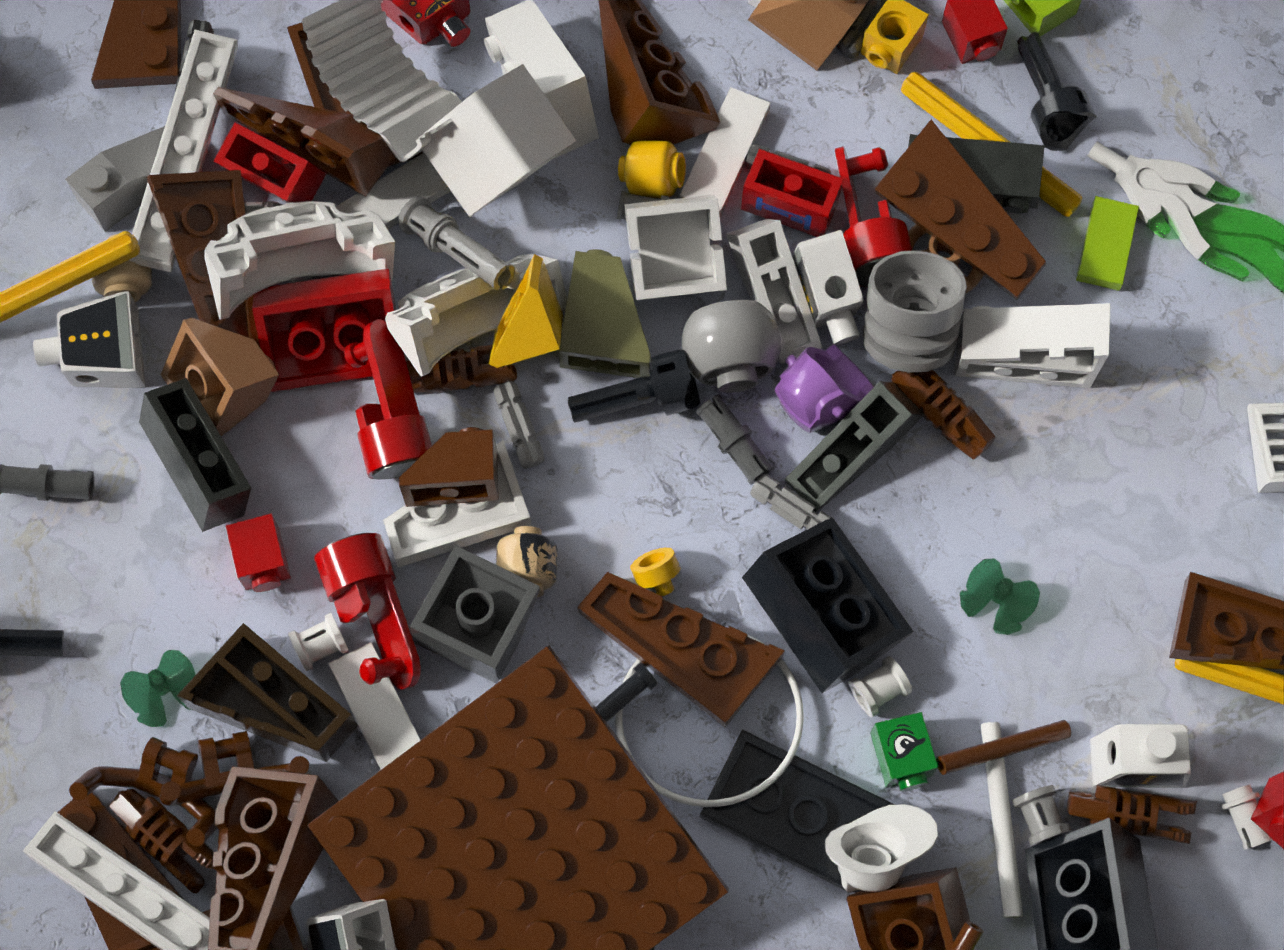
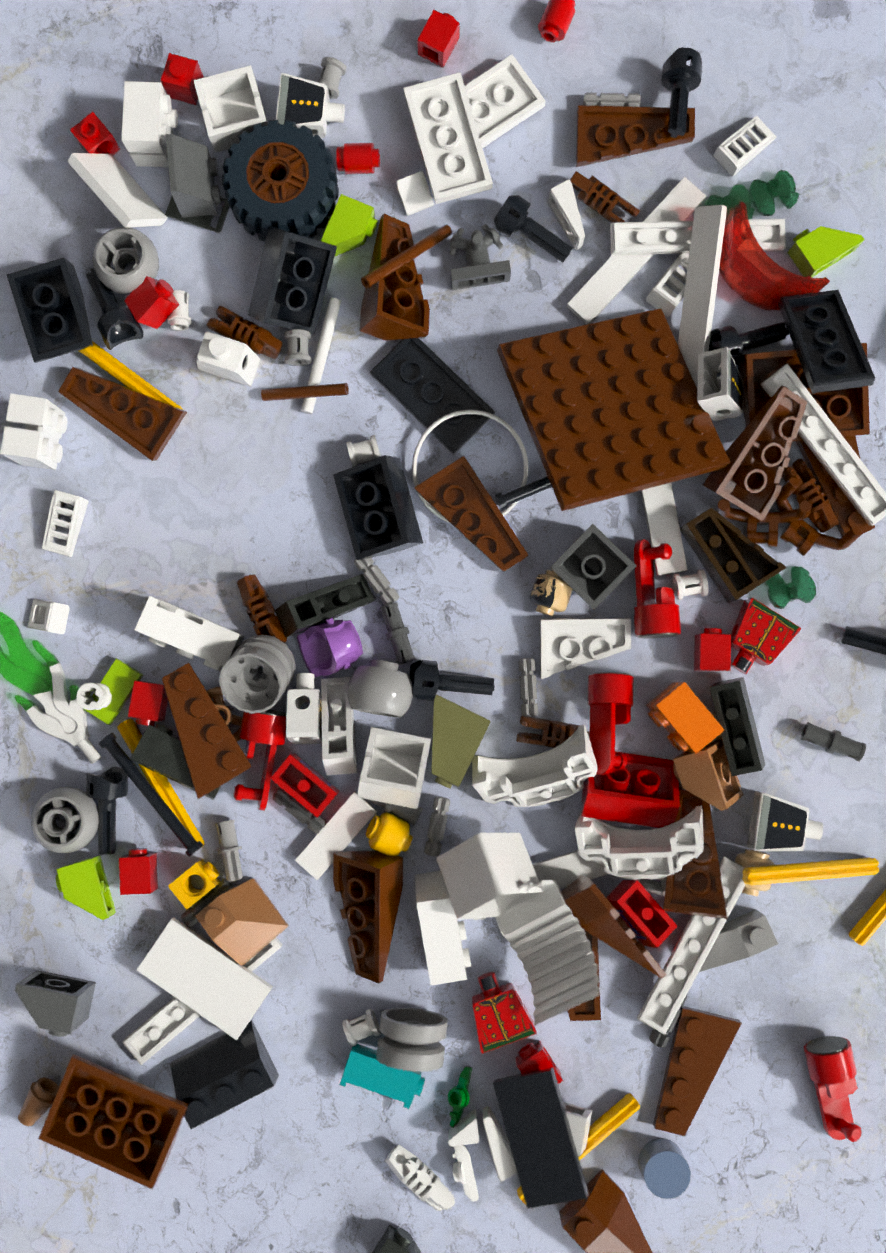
camera: 160 degrees left, 15 degrees up
(191, 597) = (759, 635): none -> red torso
(277, 437) = (684, 718): none -> orange piece
(443, 235) = (539, 829): light grey pin -> none
(454, 470) = (577, 662): reddish brown slope -> none
(530, 321) = (504, 744): yellow slope -> none
(588, 203) = (437, 826): none -> light grey axle
(656, 570) = (473, 565): yellow tile -> none
(864, 90) = (229, 850): none -> light grey axle
(880, 845) = (398, 353): white piece -> none
(904, 751) = (363, 408): green brick -> none
(997, 120) = (150, 794): none -> black bar
(1015, 599) = (264, 478): clear green piece -> none
(1055, 237) = (148, 703): none -> red brick
(1101, 73) = (44, 820): none -> light grey wheel
(1132, 218) = (87, 702): none -> white bush
(1242, 314) = (48, 616): none -> white slope

